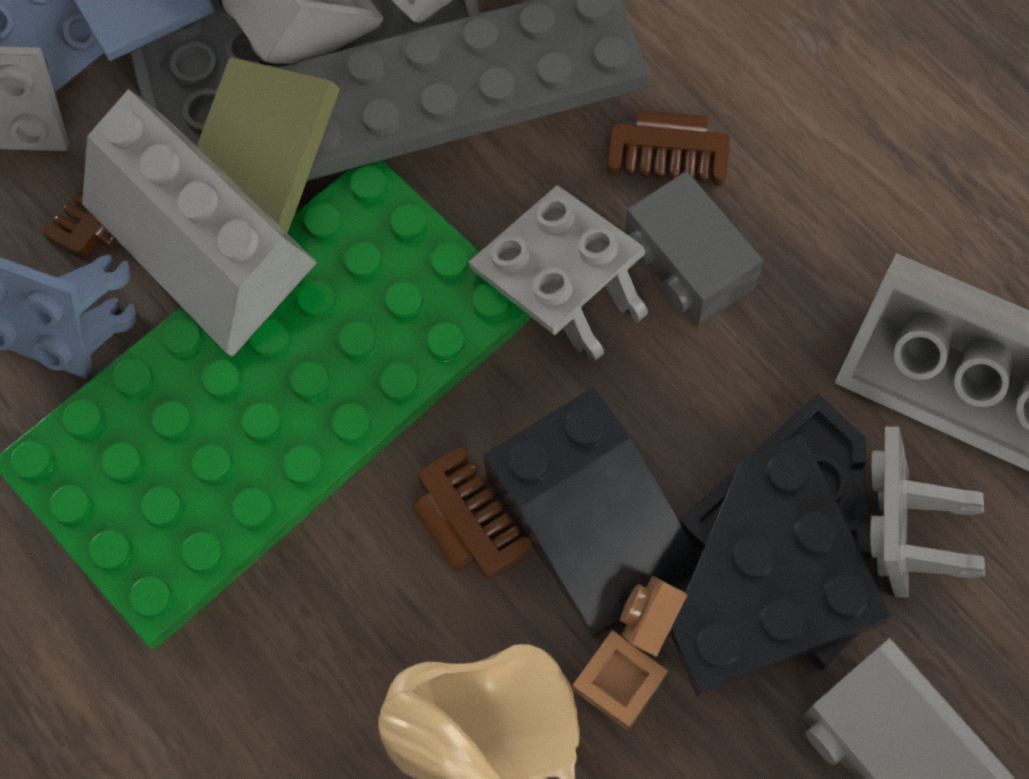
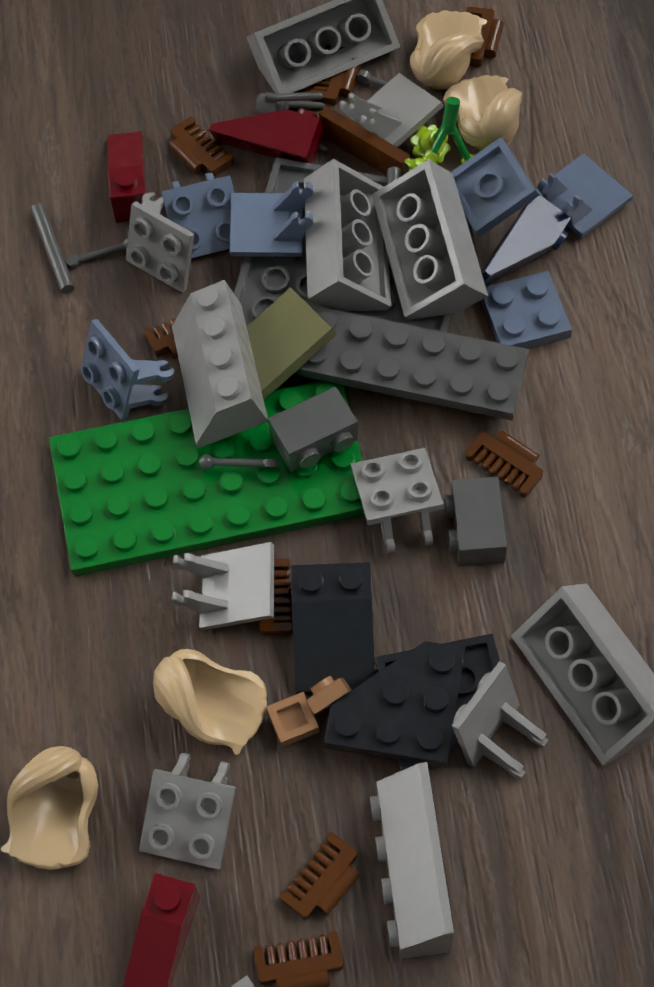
camera: 30 degrees right, 5 degrees down
(258, 370) = (207, 462): none -> dark grey hinge
(388, 240) = (313, 429): none -> dark grey brick
(411, 532) = (234, 585): none -> light grey plate

